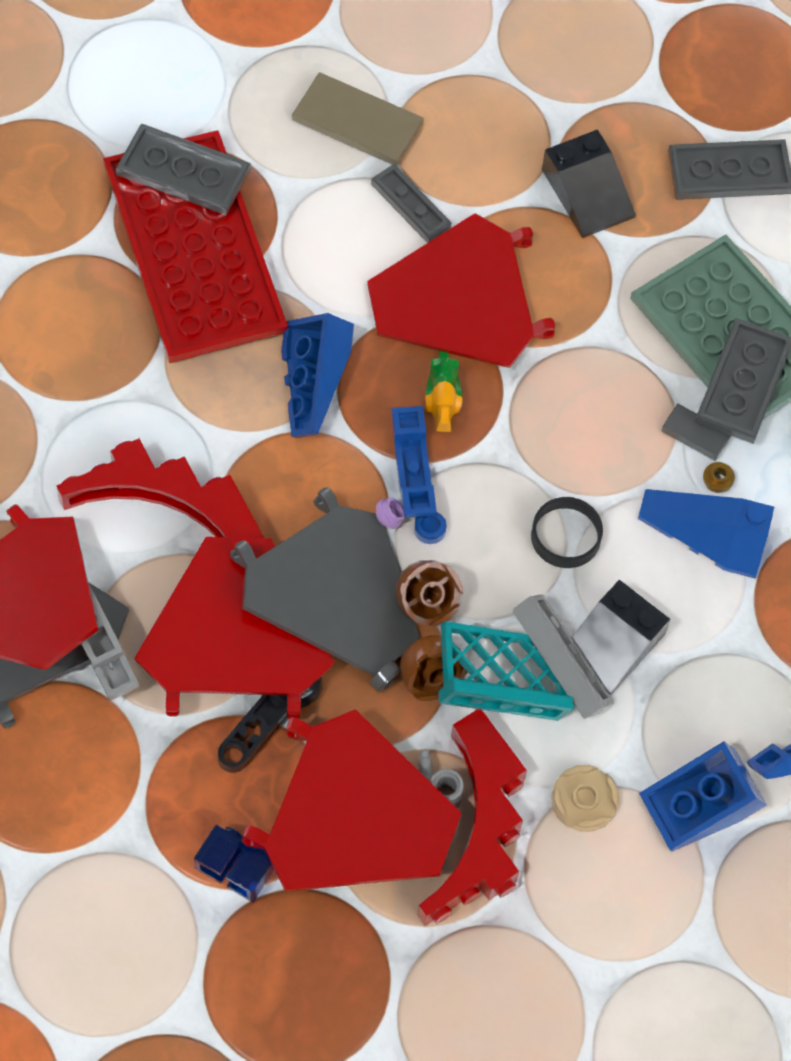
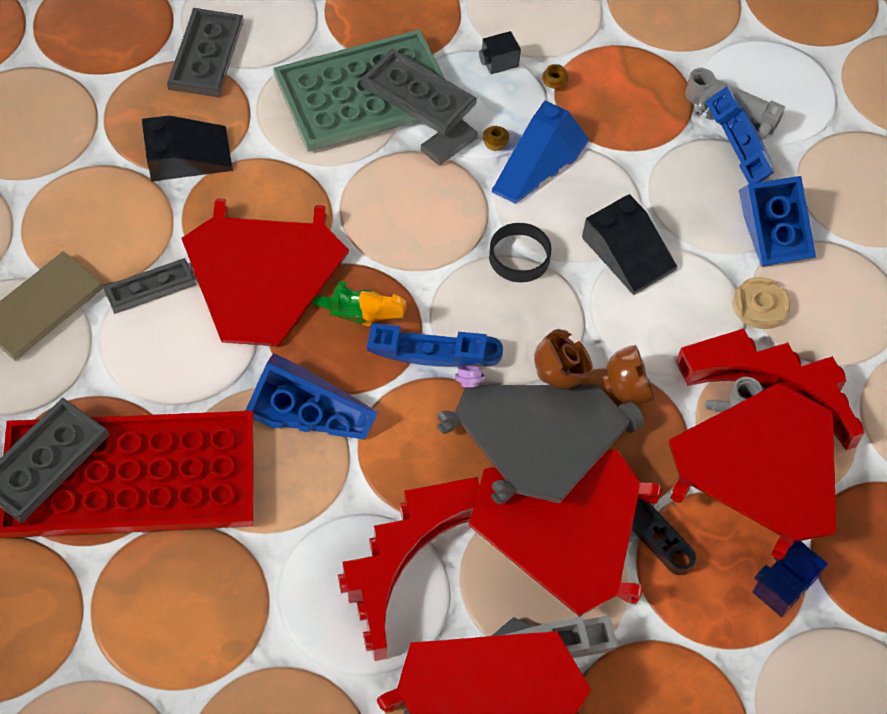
camera: 75 degrees left, 5 degrees down
(498, 697) = (674, 322): teal fence -> none
(563, 655) = (642, 278): light grey slope -> none

